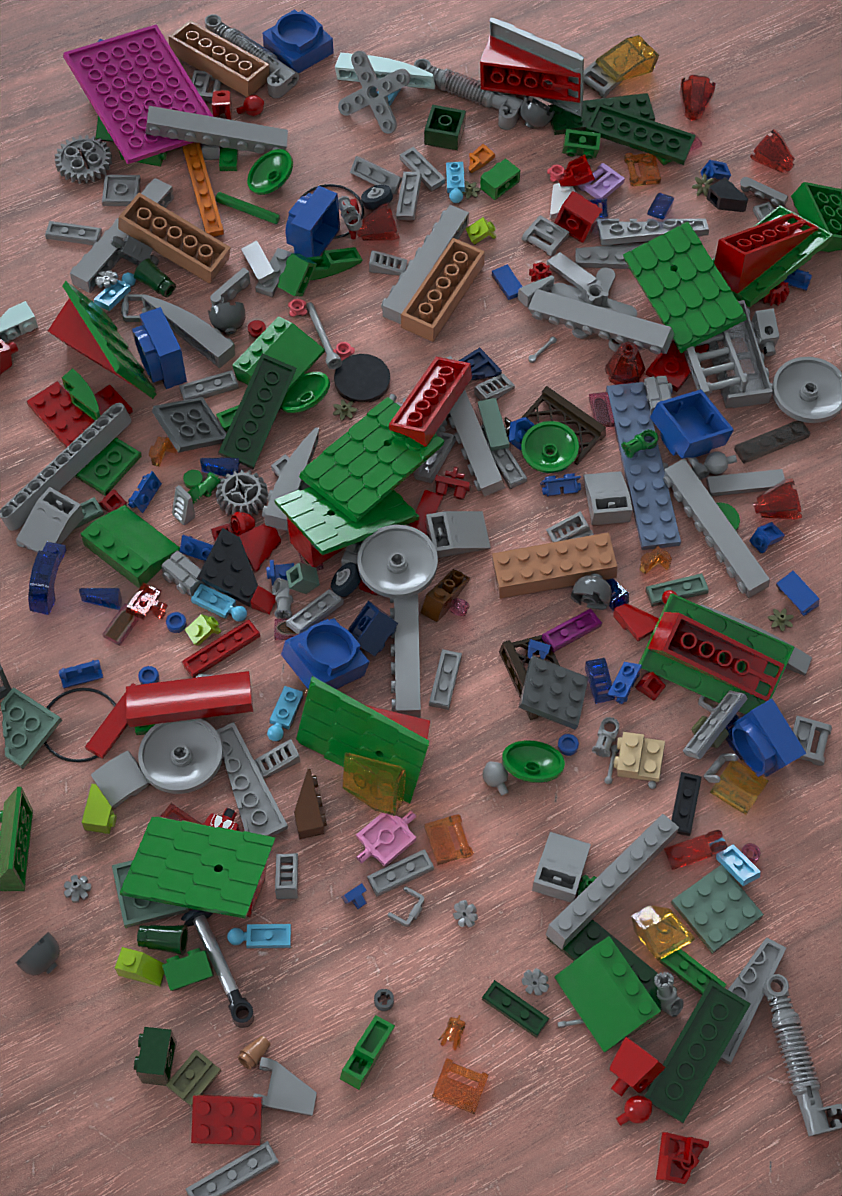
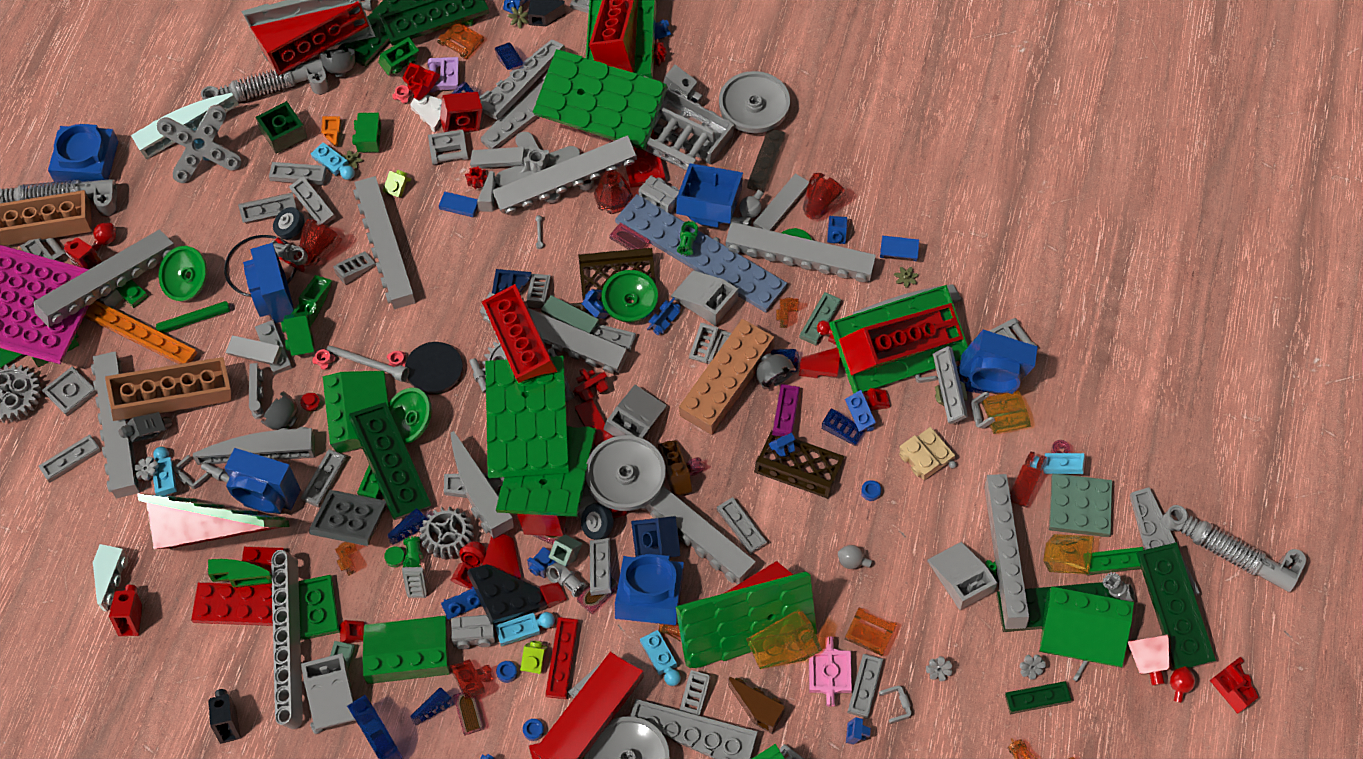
camera: 45 degrees left, 0 degrees up
(147, 490) = (367, 592): blue hinge -> none
(154, 278) = (184, 434): dark green plant -> none
(344, 409) = (447, 402): olive plant -> none
(442, 289) = (421, 250): nougat brick -> none
(533, 761) = (867, 522): green dish -> none
(553, 692) = (826, 463): dark grey plate -> none
(605, 736) = (890, 461): light grey connector -> none
(608, 780) = (922, 488): light grey hinge -> none
(686, 802) = (984, 454): black tile -> none

